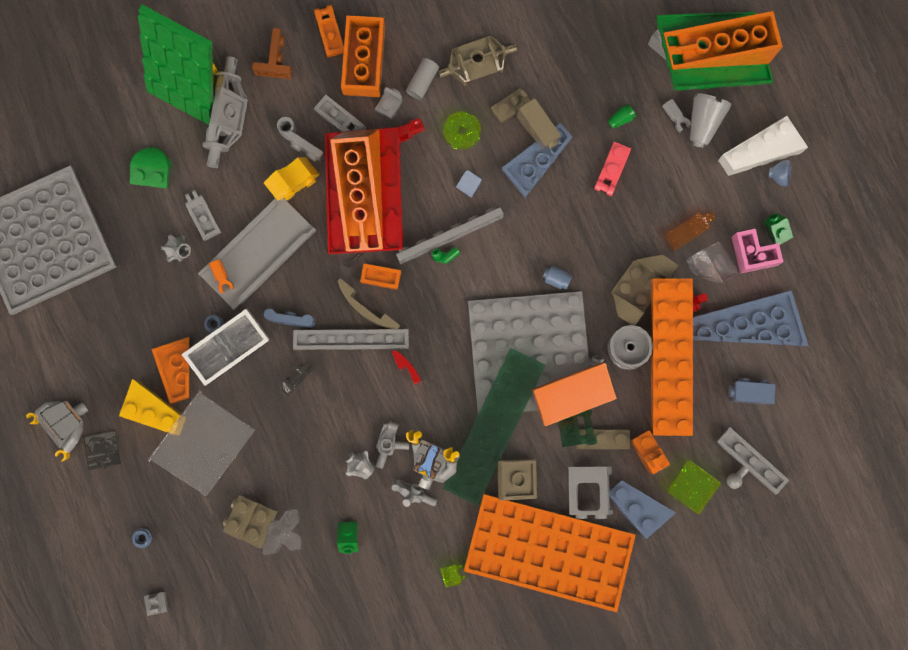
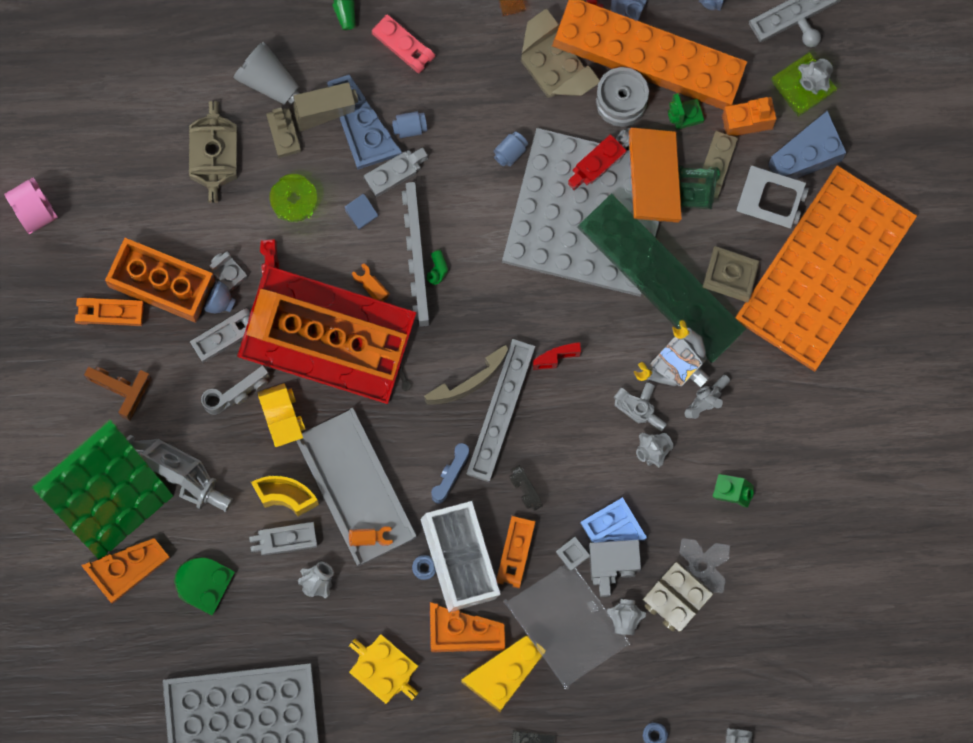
camera: 75 degrees left, 5 degrees down
(129, 320) = (383, 669): none -> yellow plate
(143, 110) = (124, 570): none -> orange wing
(222, 486) = (626, 616): none -> light grey rock
(234, 202) = (285, 492): none -> yellow brick
(247, 387) = (515, 550): none -> orange plate
(256, 430) = (572, 554): none -> light grey tile
(263, 461) = (610, 559): none -> light grey hinge
(291, 453) = (613, 524): none -> light blue wing
(364, 105) = (219, 299): none -> sand blue brick
(380, 276) = (437, 351): orange plate -> none
(415, 211) = (371, 284): none -> orange bar
(422, 79) = (213, 222): light grey pin -> none
(451, 575) = (816, 386): clear neon green tile -> none
(509, 197) = (395, 171): none -> light grey hinge
(549, 76) = (267, 75): none -> light grey cone
(549, 195) = (409, 124): none -> sand blue brick
(569, 346) = (597, 162): none -> red hinge
(635, 401) = (684, 113): none -> green bracket
(701, 494) = (816, 75): none -> light grey rock

